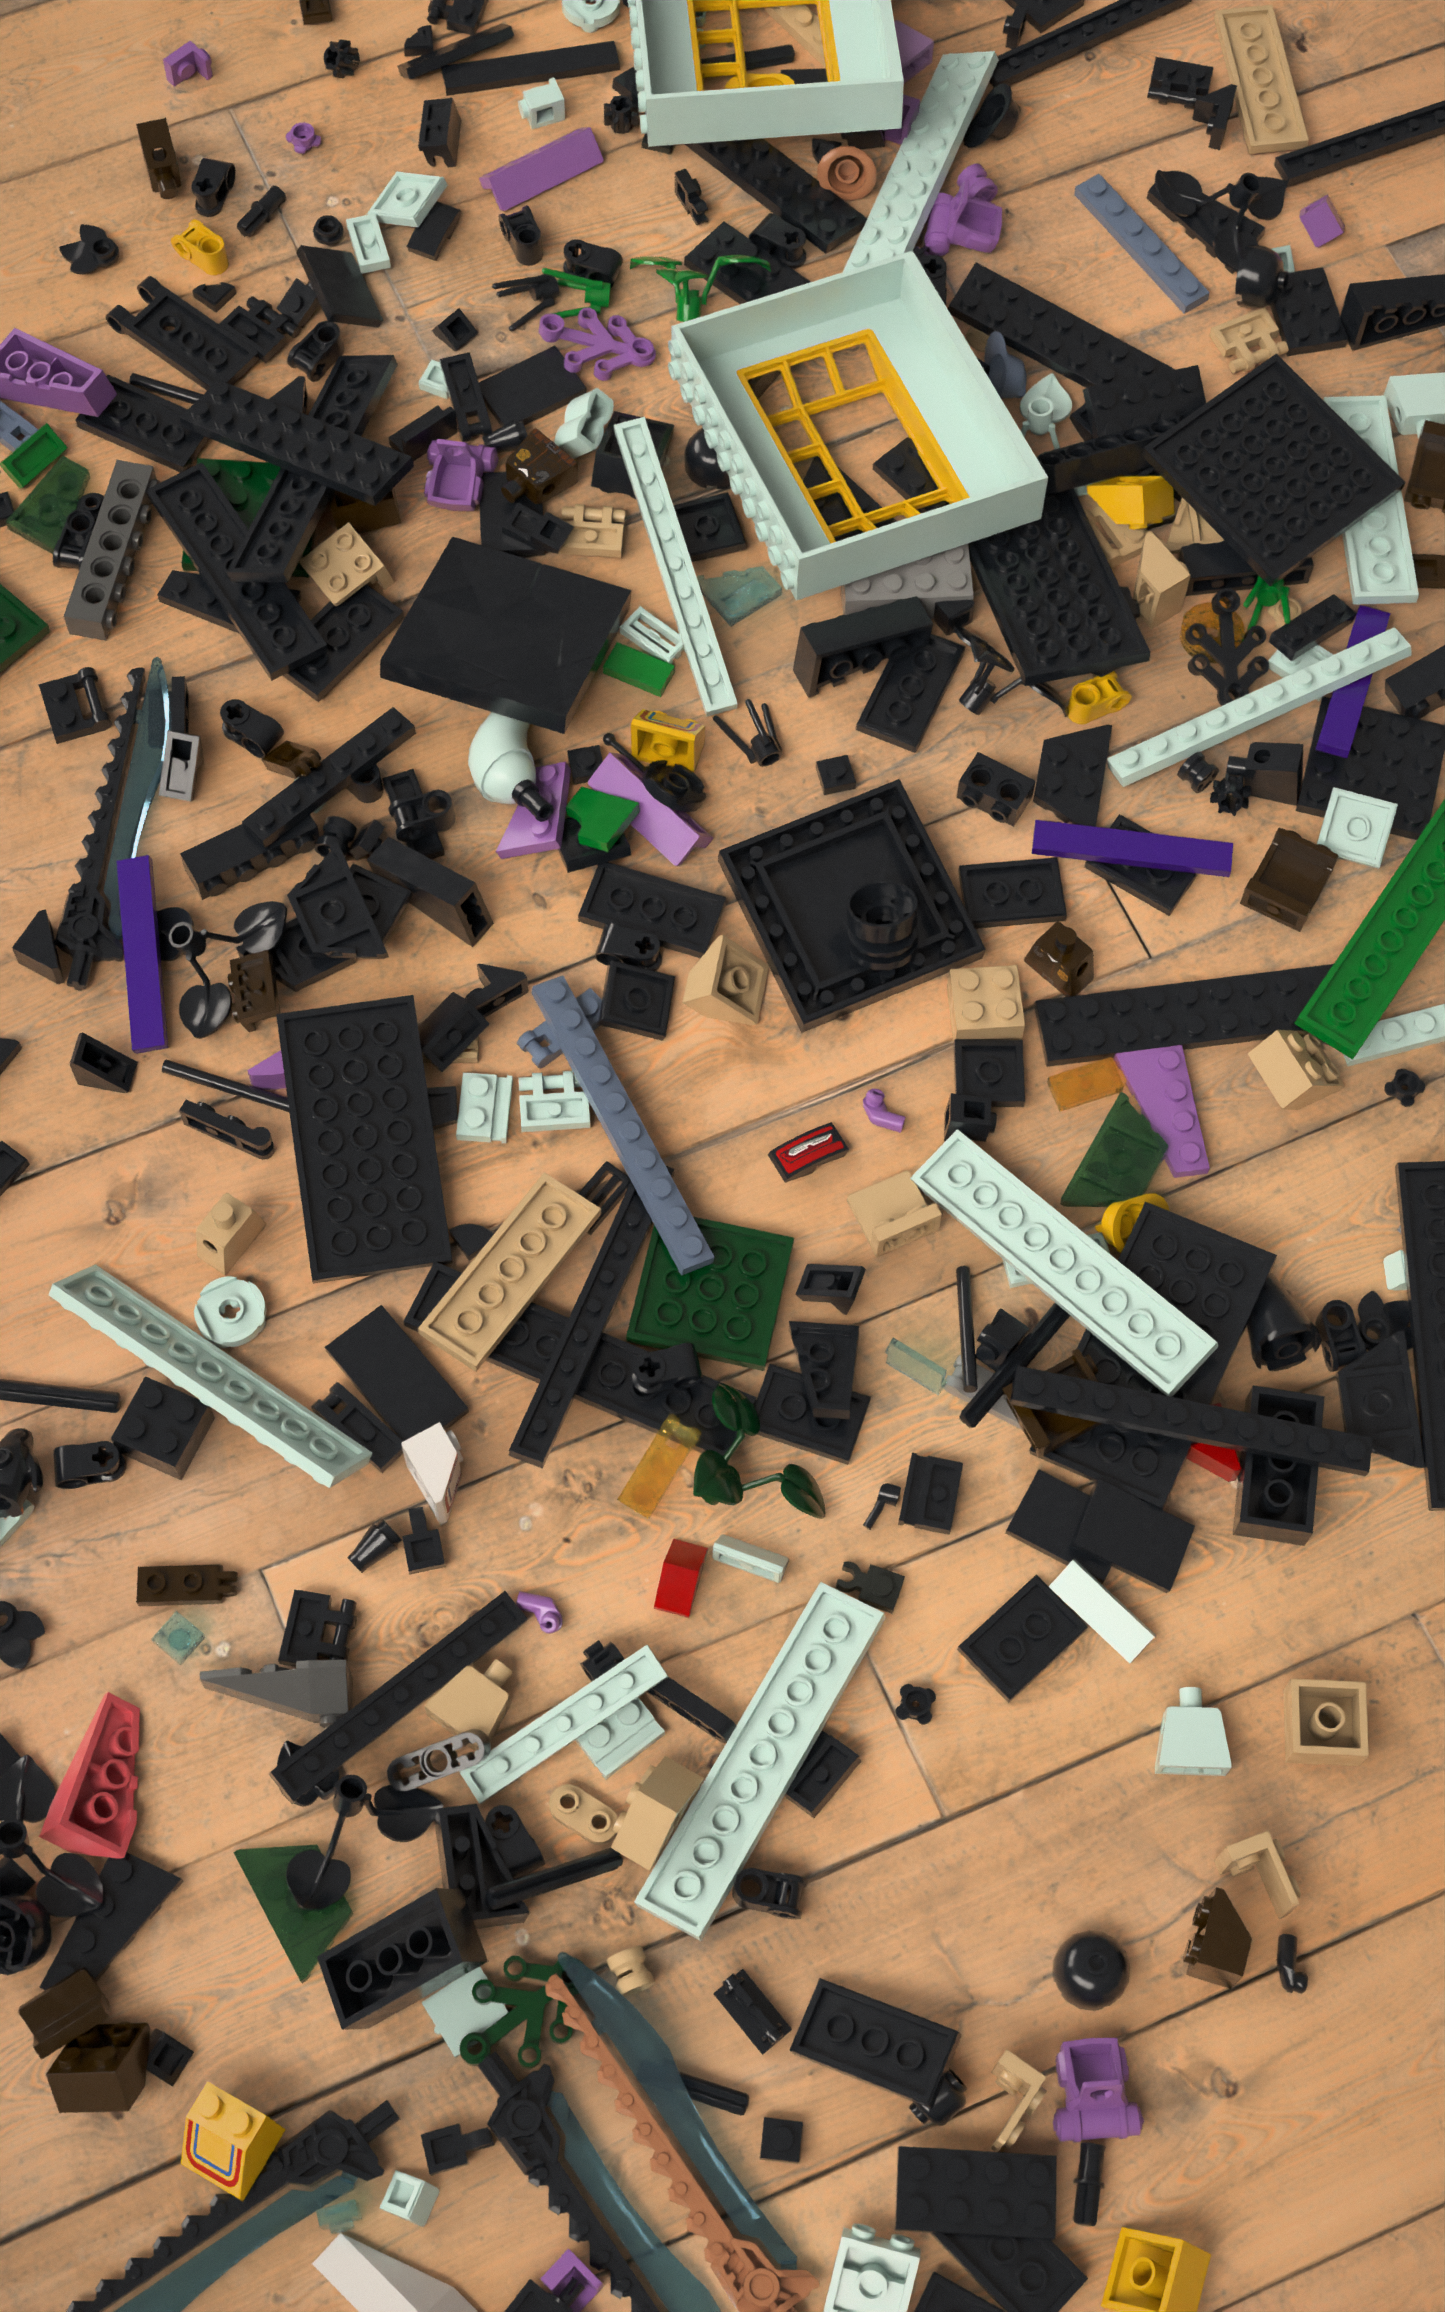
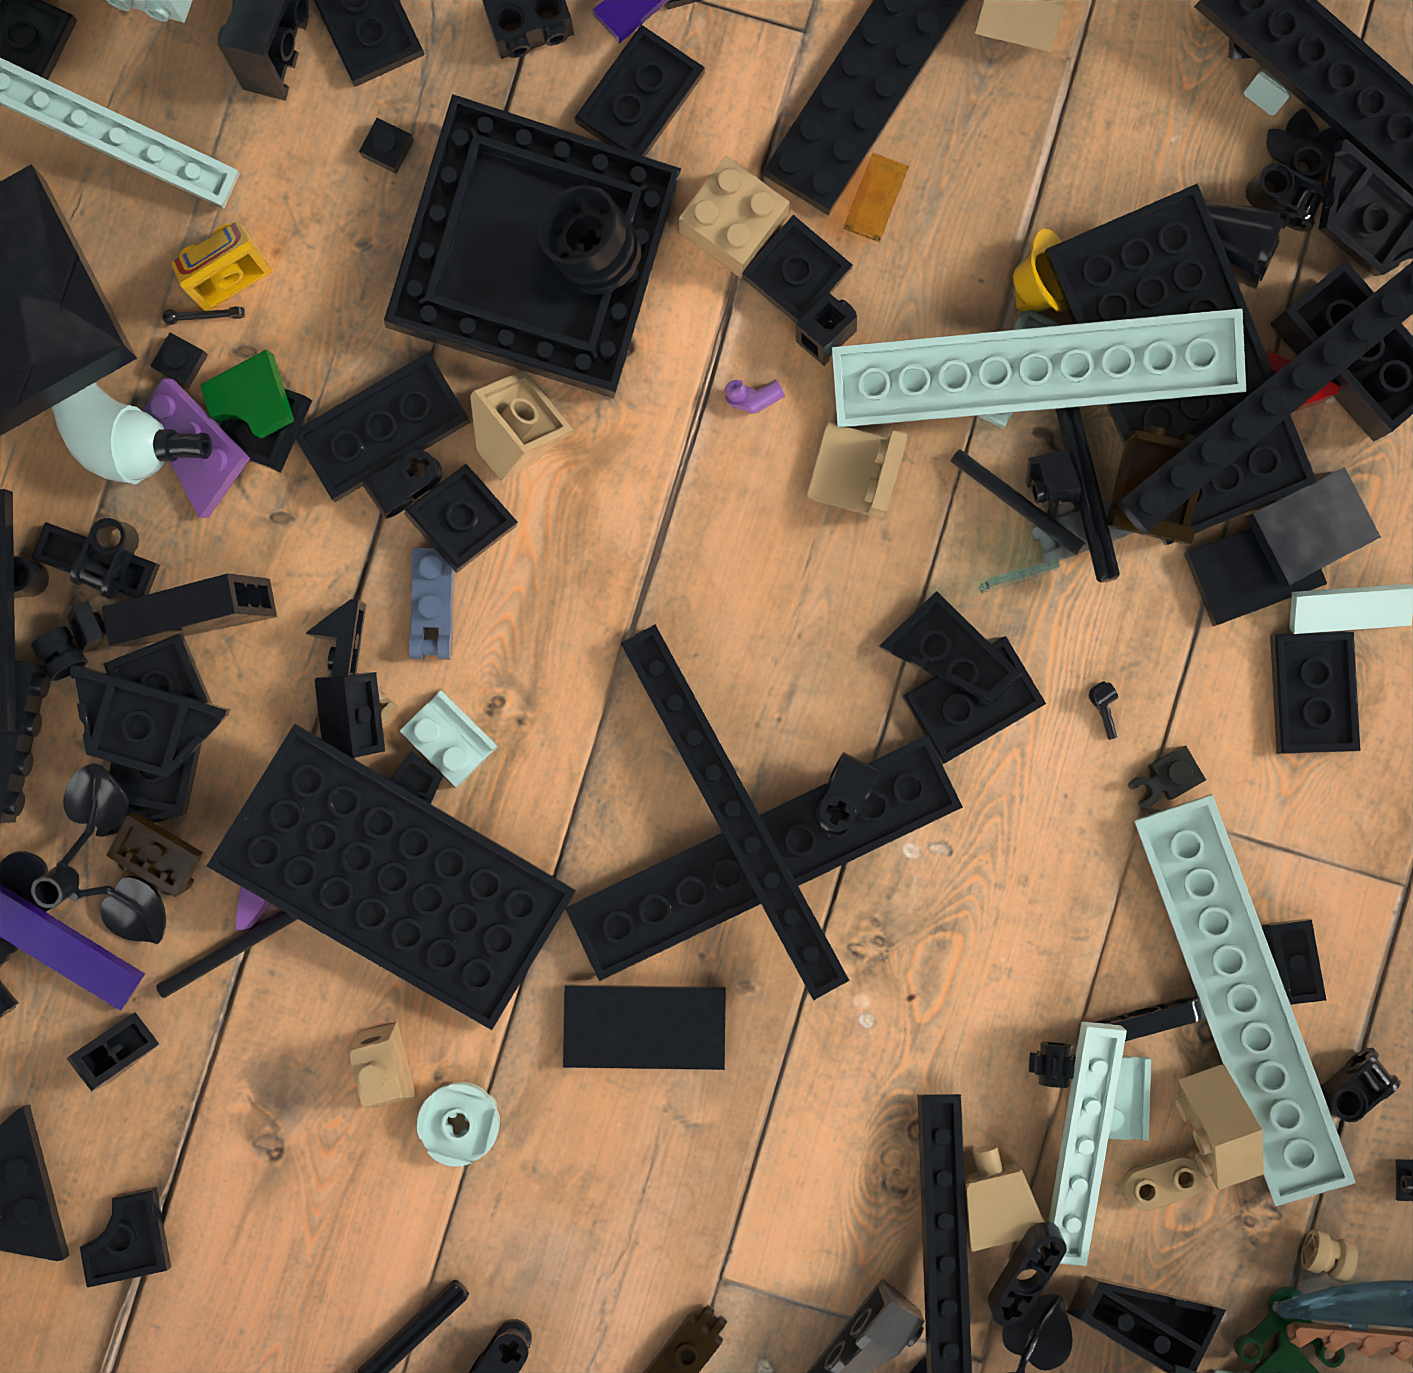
camera: 50 degrees left, 20 degrees up
(163, 1428) = (522, 1273): black brick -> none
(211, 1375) = (509, 1198): light aqua plate -> none
(227, 1129) = (277, 986): black plate -> none
(307, 1625) = (812, 1290): black plate -> none
(360, 1426) = (664, 1096): black plate -> none
(375, 1545) = (784, 1167): black cone -> none
(422, 1547) = (821, 1130): black plate -> none
(435, 1466) = (766, 1071): white slope -> none
(470, 1238) = (568, 853): black tile -> none
(509, 1271) = (635, 853): tan plate -> none
(515, 1847) = (1147, 1265): black piece -> none
(544, 1610) = (960, 1070): medium lavender arm -> none
(552, 1110) = (505, 682): light aqua plate -> none
(553, 1878) = (1210, 1266): black axle -> none
(614, 1199) = (628, 743): black tile -> none
(623, 1125) = (574, 635): sand blue plate -> none
(638, 669) = (119, 228): green tile -> none
(647, 643) = (96, 199): light aqua tile -> none
(658, 1467) = (922, 872): clear yellow plate -> none
(666, 829) = (296, 339): medium lavender panel -> none
(674, 786) = (275, 301): black tile -> none
(680, 1578) = (1027, 930): red slope -> none
(720, 1307) = (793, 688): dark green plate -> none
(721, 1482) = (1004, 849): dark green plant -> none
(740, 592) = (120, 66): clear light blue wing -> none
(750, 1558) = (1060, 858): light aqua slope -> none
(765, 745) = (303, 182): black plant -> none
(807, 1151) = (736, 493): slope -> none
(831, 1284) = (881, 582): black slope -> none
(923, 1696) = (1309, 830): black plate -> none
(930, 1493) = (1133, 660): black plate -> none
(1062, 960) = (746, 110): dark brown torso -> none
(1118, 1160) = (974, 234): clear green wing -> none
(1166, 1100) = (946, 139): medium lavender wing -> none

